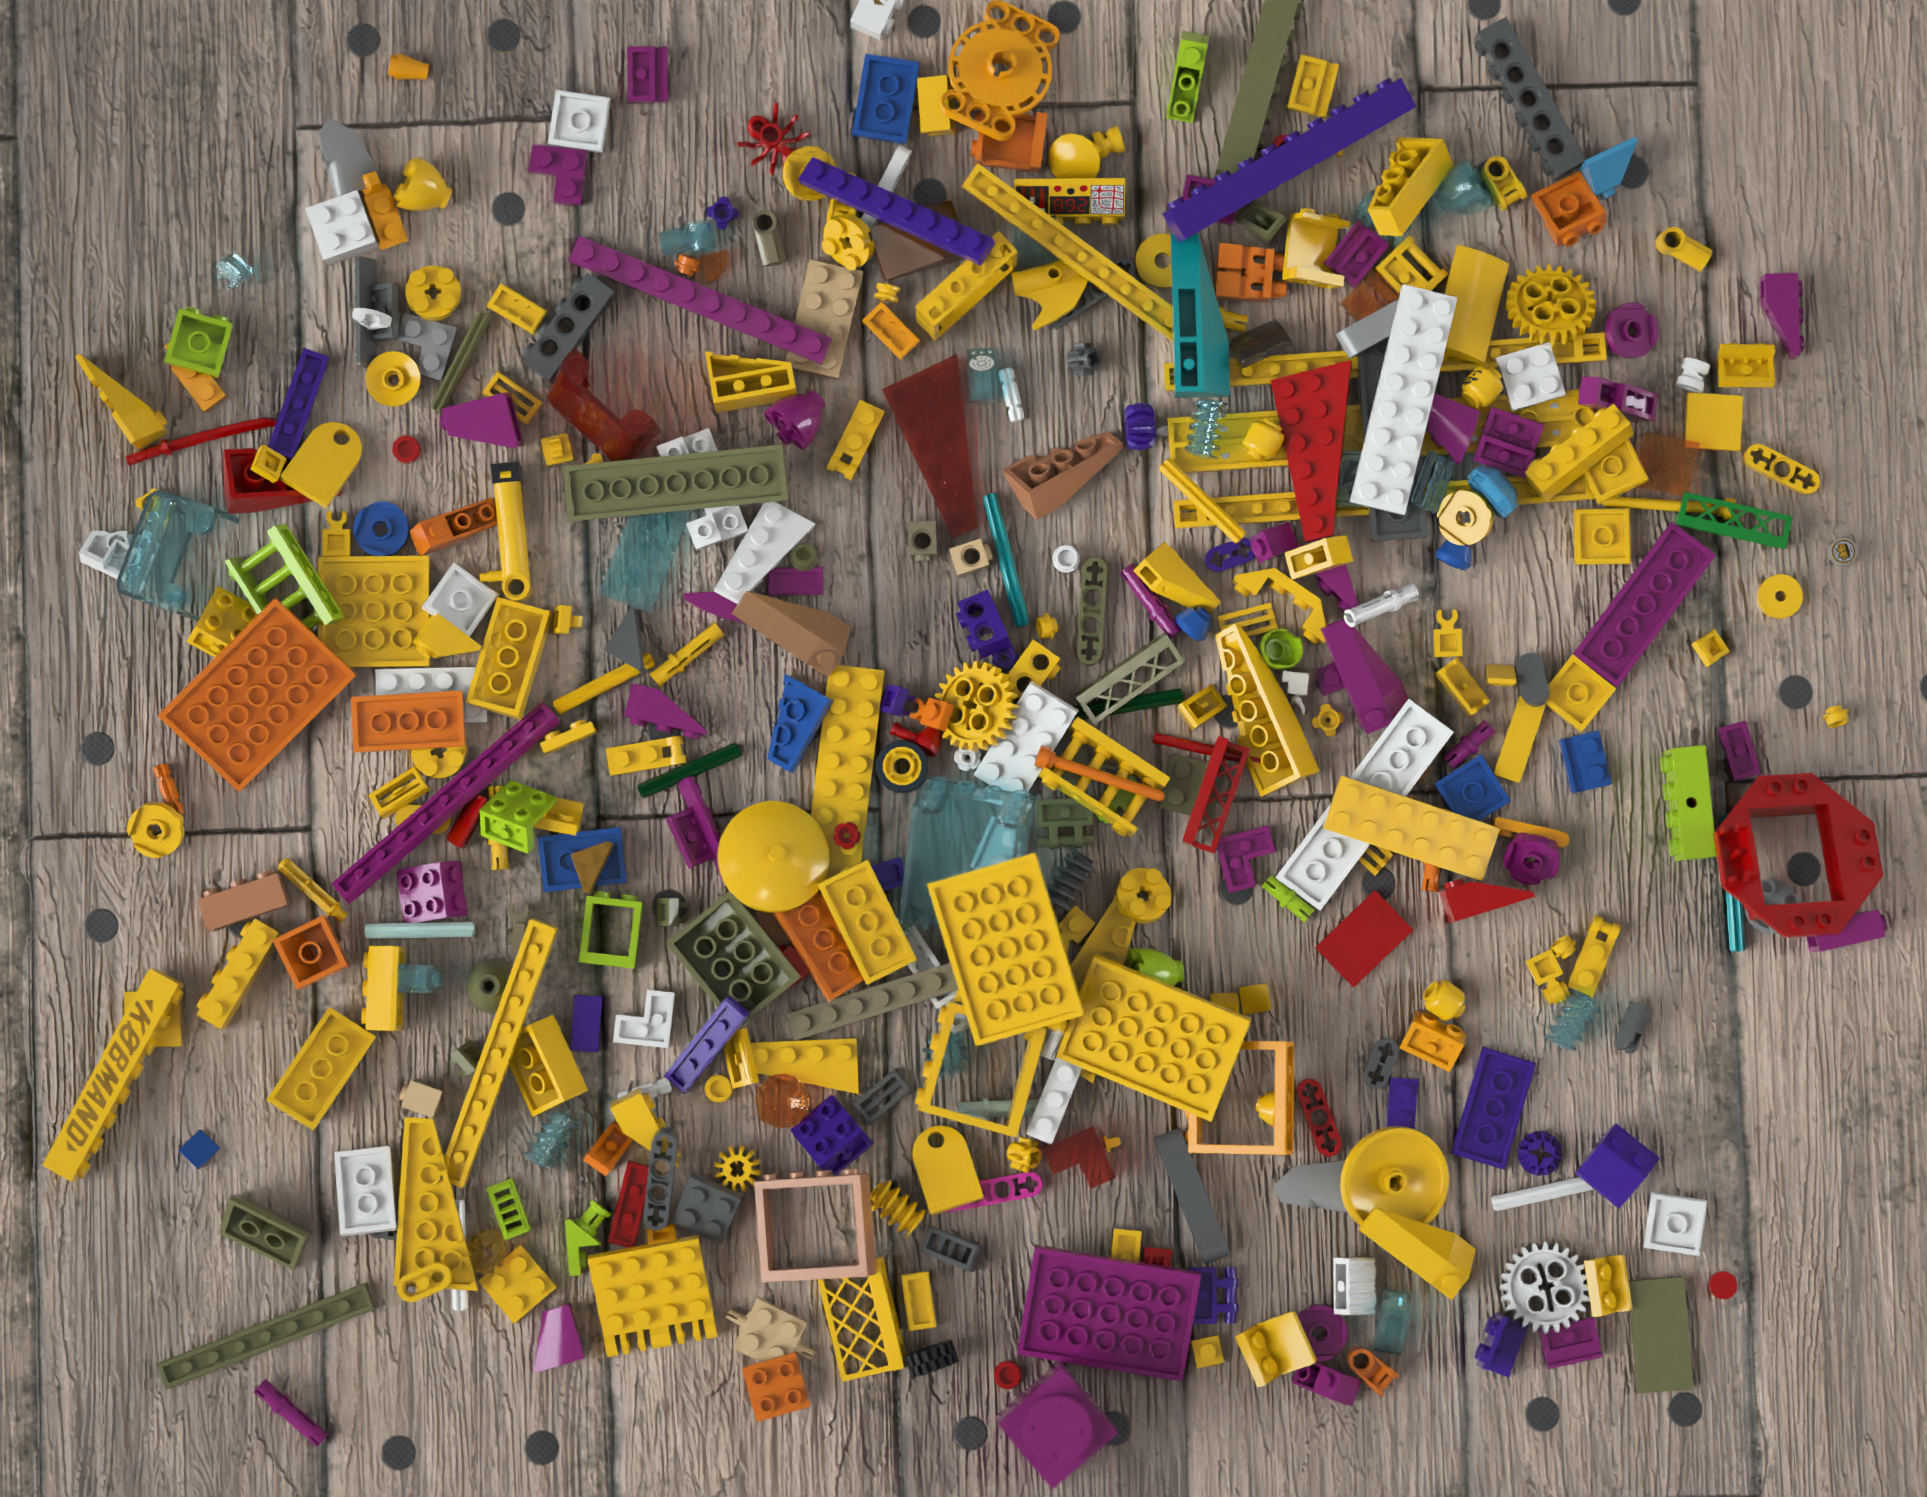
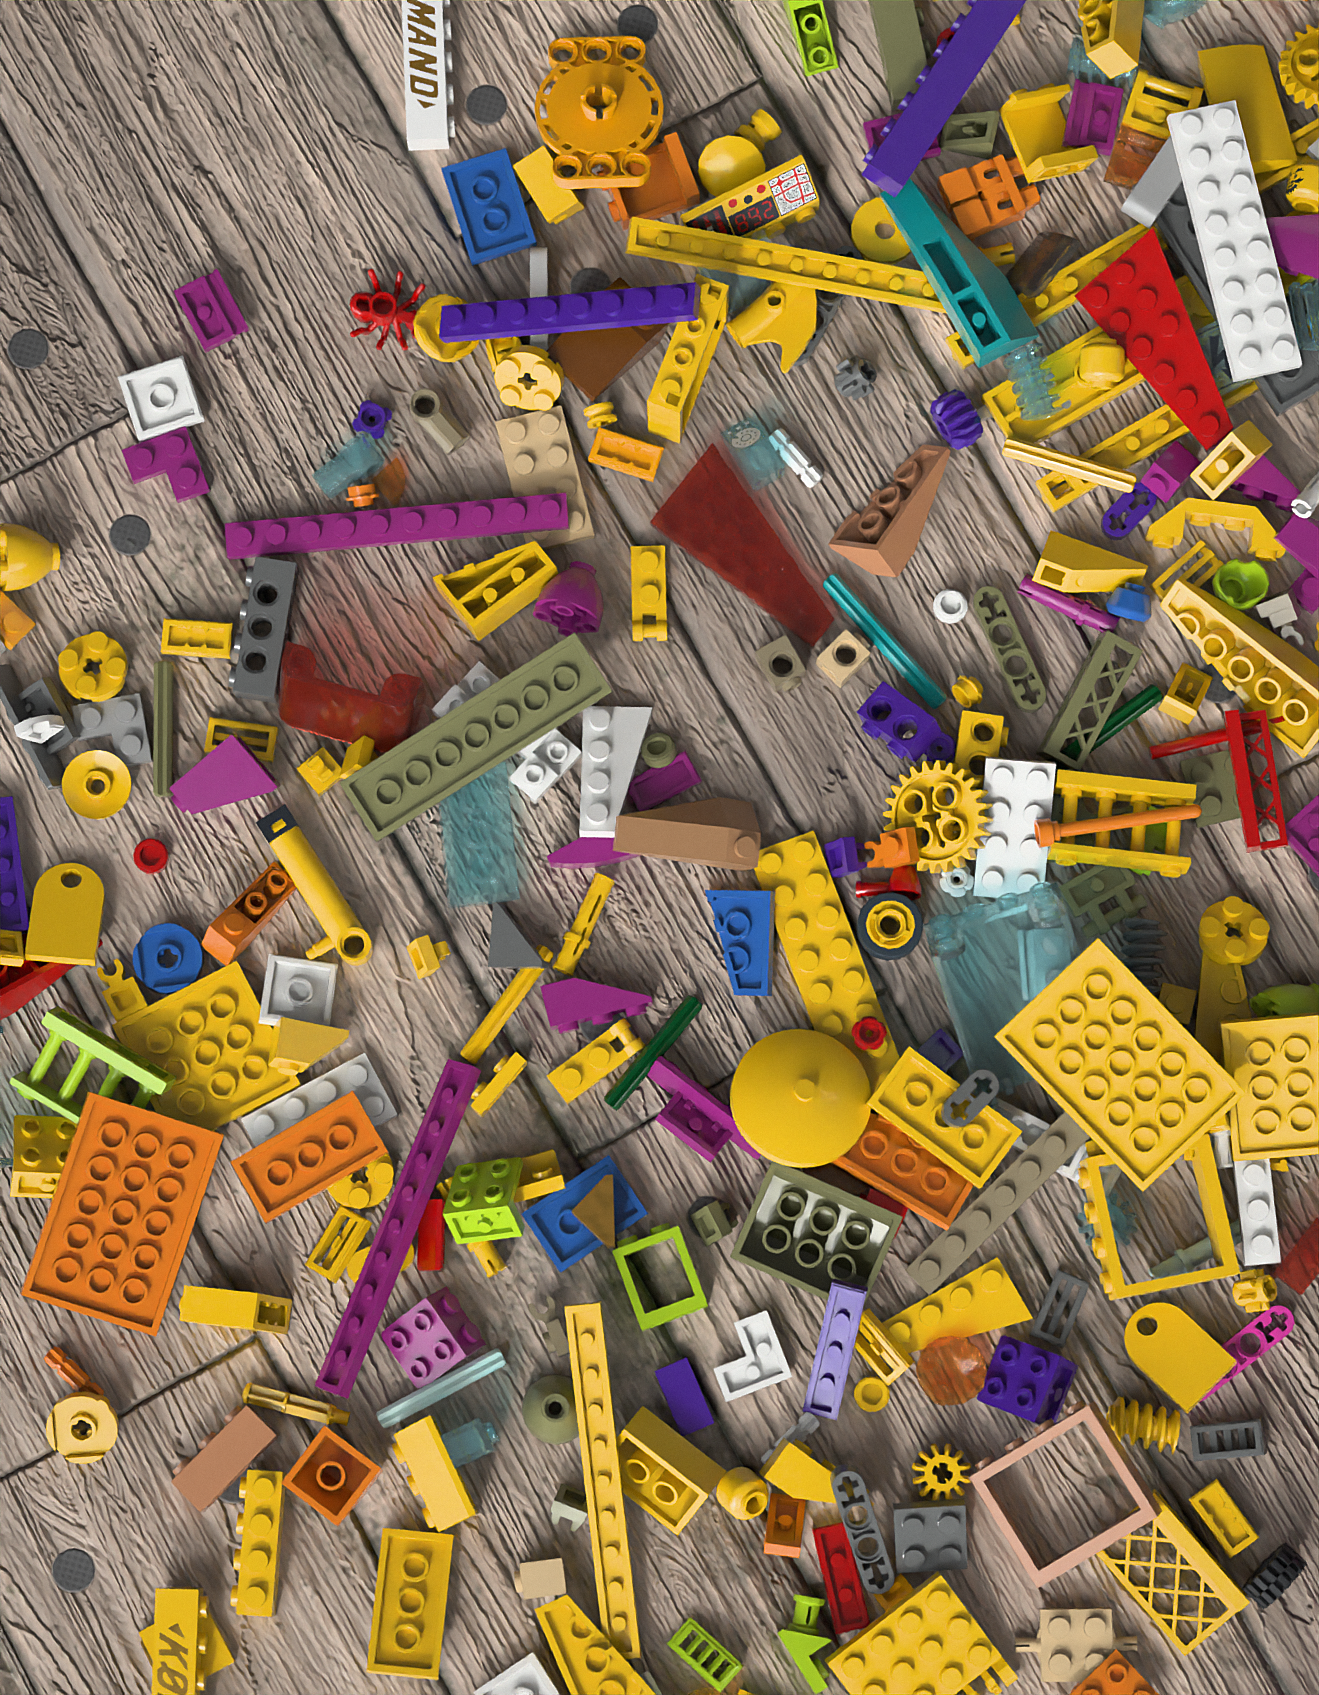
camera: 25 degrees left, 5 degrees down
(303, 802) = (235, 1309): none -> yellow slope
(509, 658) = (386, 1029): yellow slope -> none
(551, 1139) = (713, 1549): clear light blue piece -> none
(587, 453) = (357, 756): none -> yellow tile
(591, 1111) = (742, 1493): none -> yellow head
(888, 911) = (963, 1092): none -> dark grey beam

